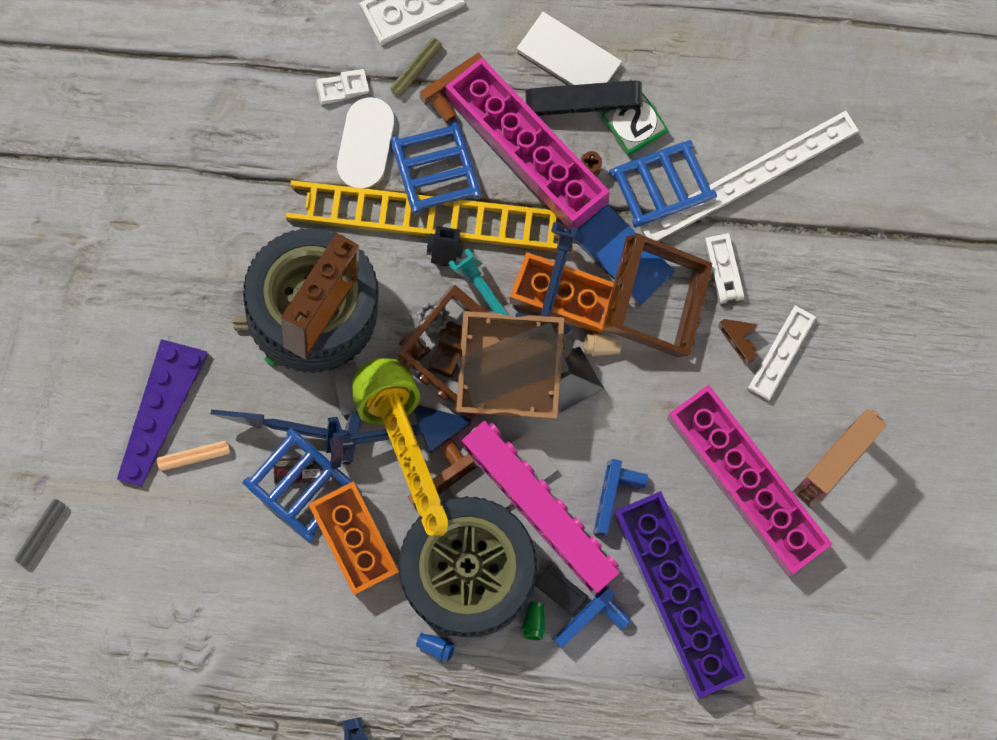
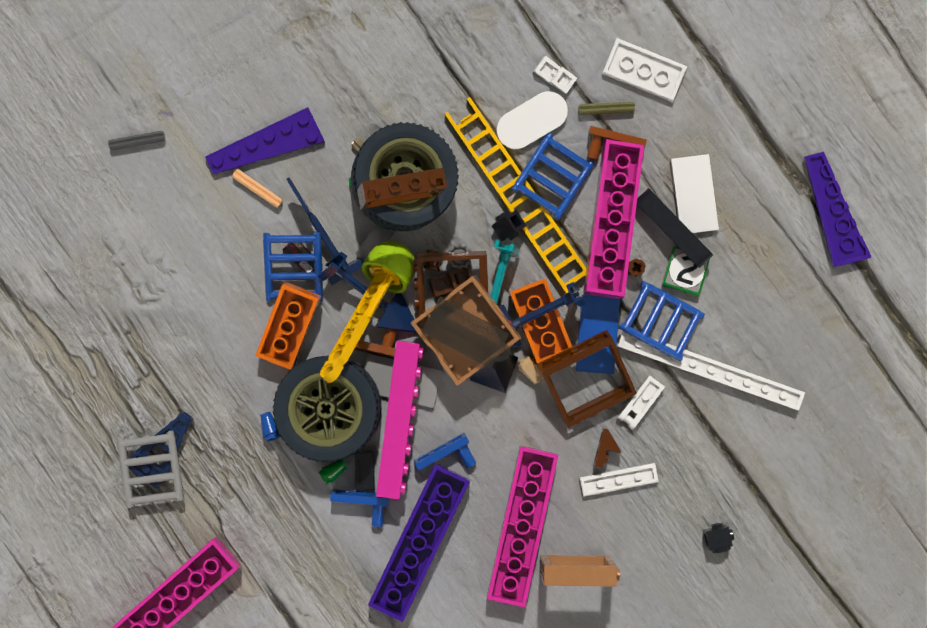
camera: 45 degrees right, 10 degrees up
(919, 306) = (718, 538): none -> black brick

